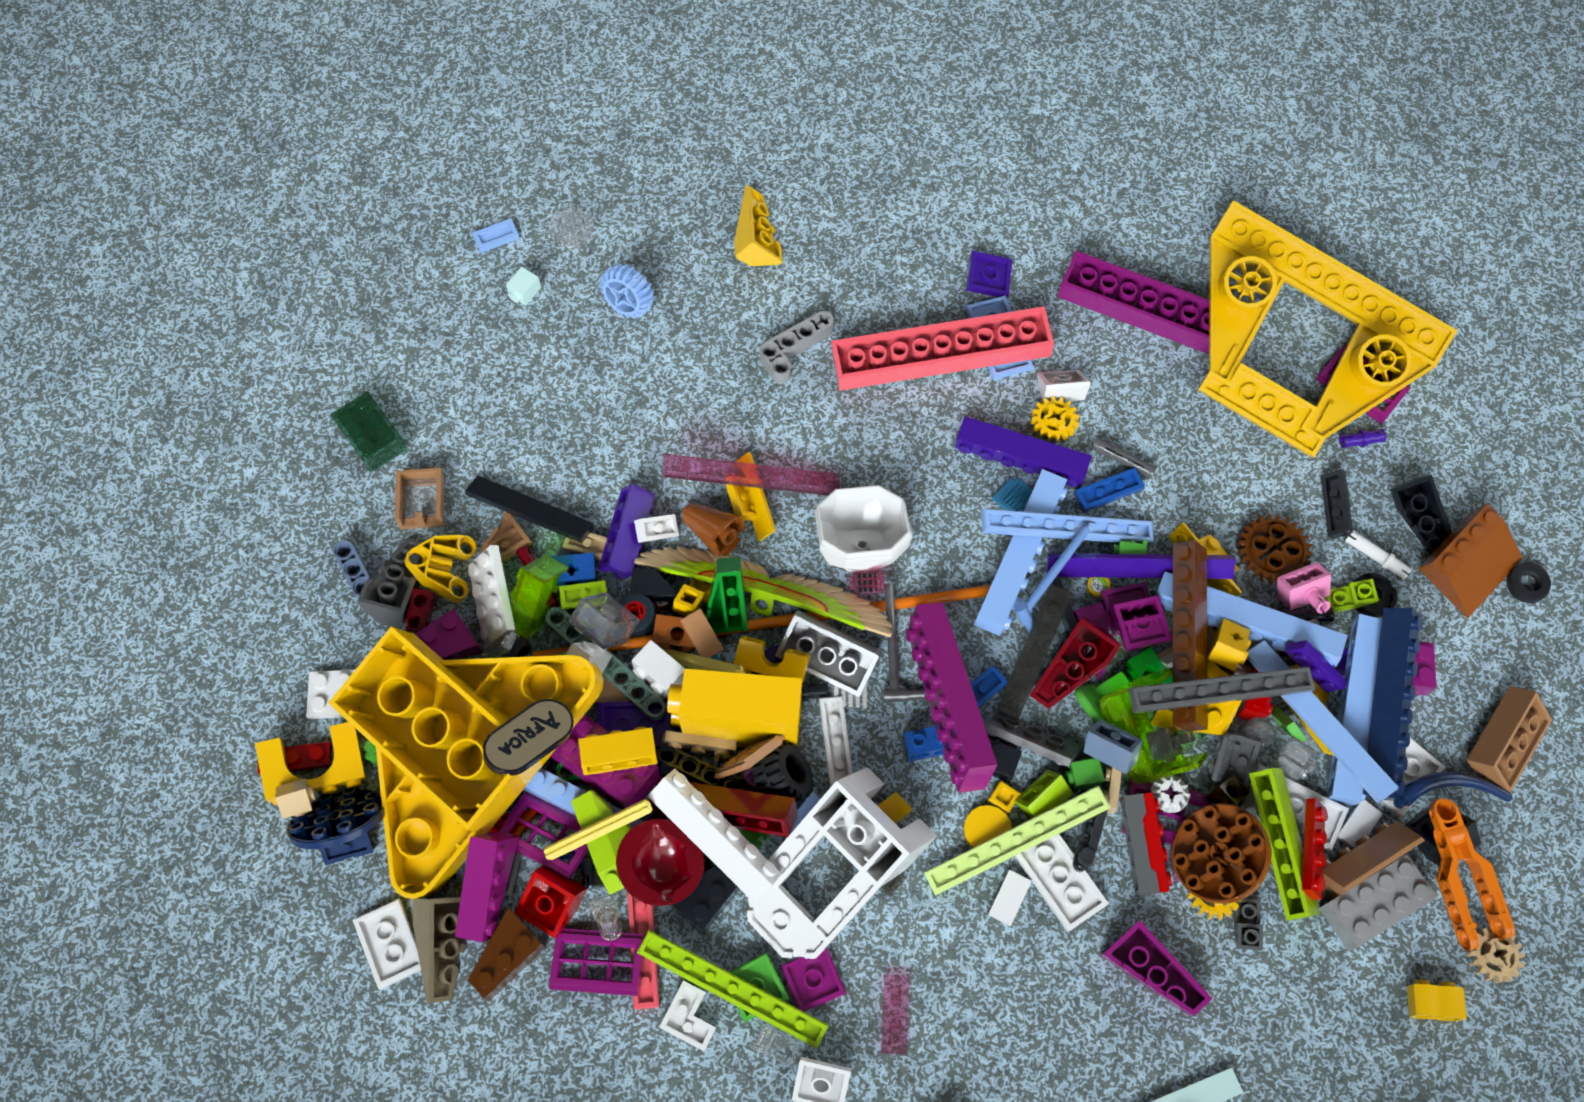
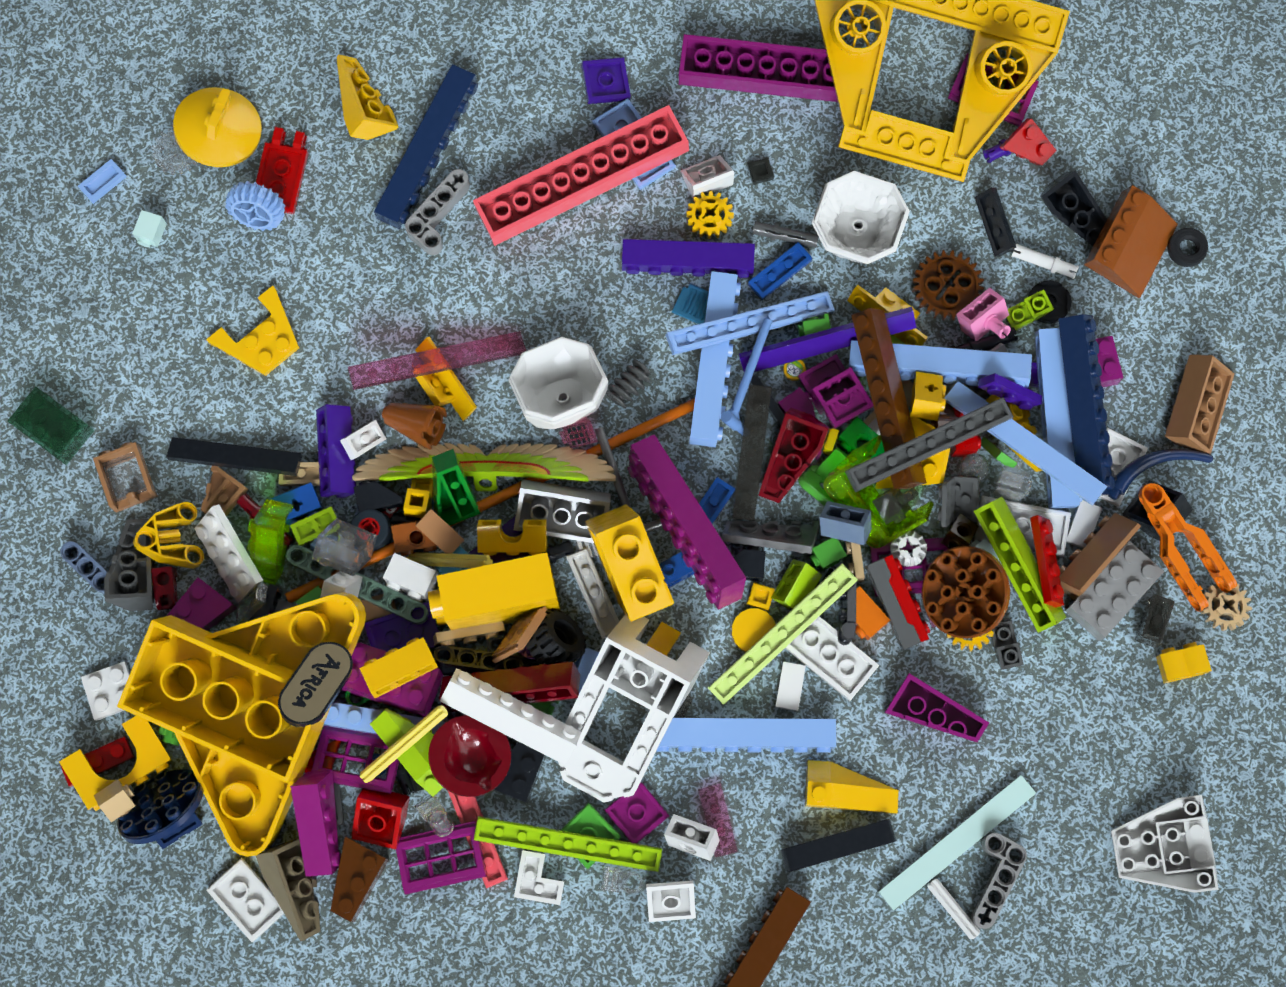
camera: 15 degrees left, 10 degrees up
(596, 417) = (267, 343): none -> yellow wing
(616, 215) = (217, 127): none -> yellow bracket
(666, 267) = (284, 167): none -> red tile
(802, 285) = (426, 146): none -> dark blue brick
(863, 1022) = (691, 837): none -> white brick
(882, 716) = (629, 562): none -> yellow brick
(930, 550) = (628, 383): none -> dark grey piece
(954, 933) = (750, 734): none -> light blue brick
(1015, 1081) = (838, 845): none -> black beam
(1035, 1022) = (840, 788): none -> yellow wedge
(1111, 851) = (869, 616): none -> orange slope
(1114, 394) = (760, 171): none -> pearl dark grey tile
(1117, 664) = (830, 442): none -> yellow tile
(1204, 458) = (865, 203): none -> white rock
(1389, 440) = (1029, 143): none -> wing
(1415, 946) = (1155, 621): none -> clear smoke brick

